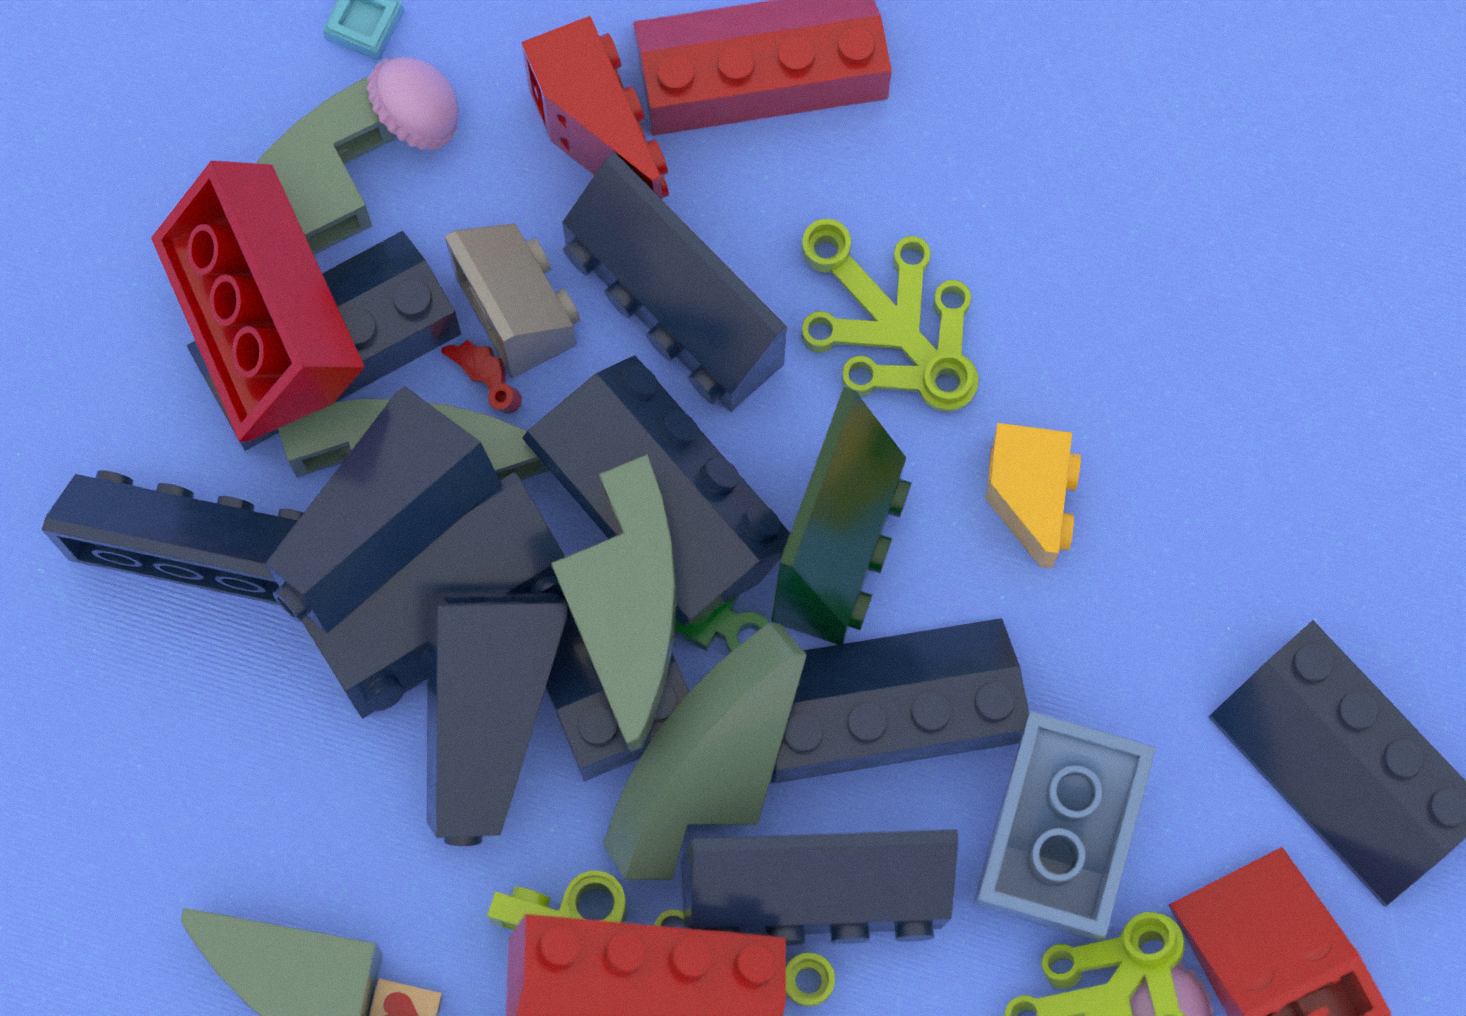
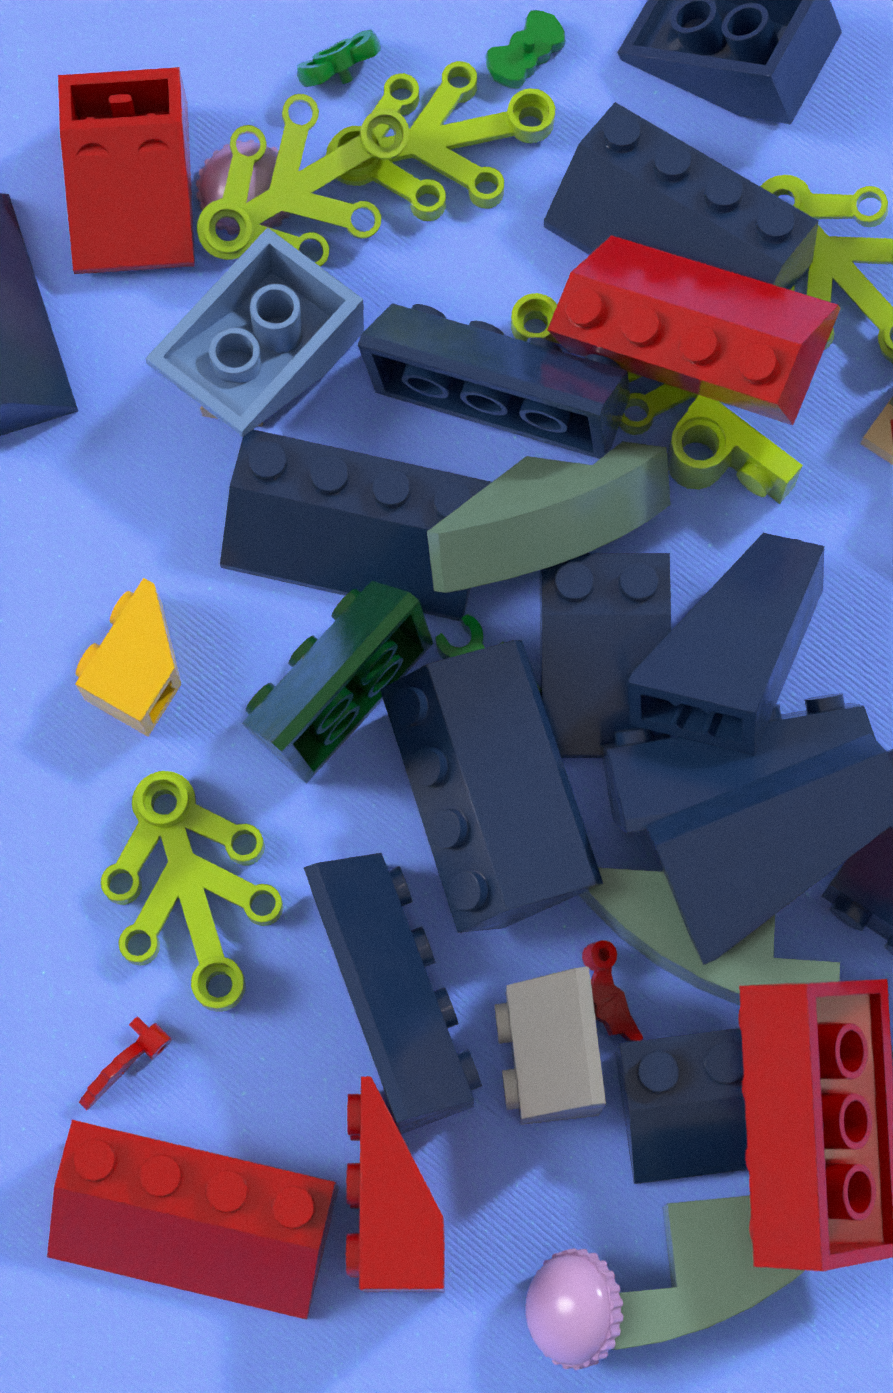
camera: 155 degrees left, 0 degrees up
(627, 599) = (569, 665): sand green slope -> none
(862, 181) = (151, 1041): none -> red piece

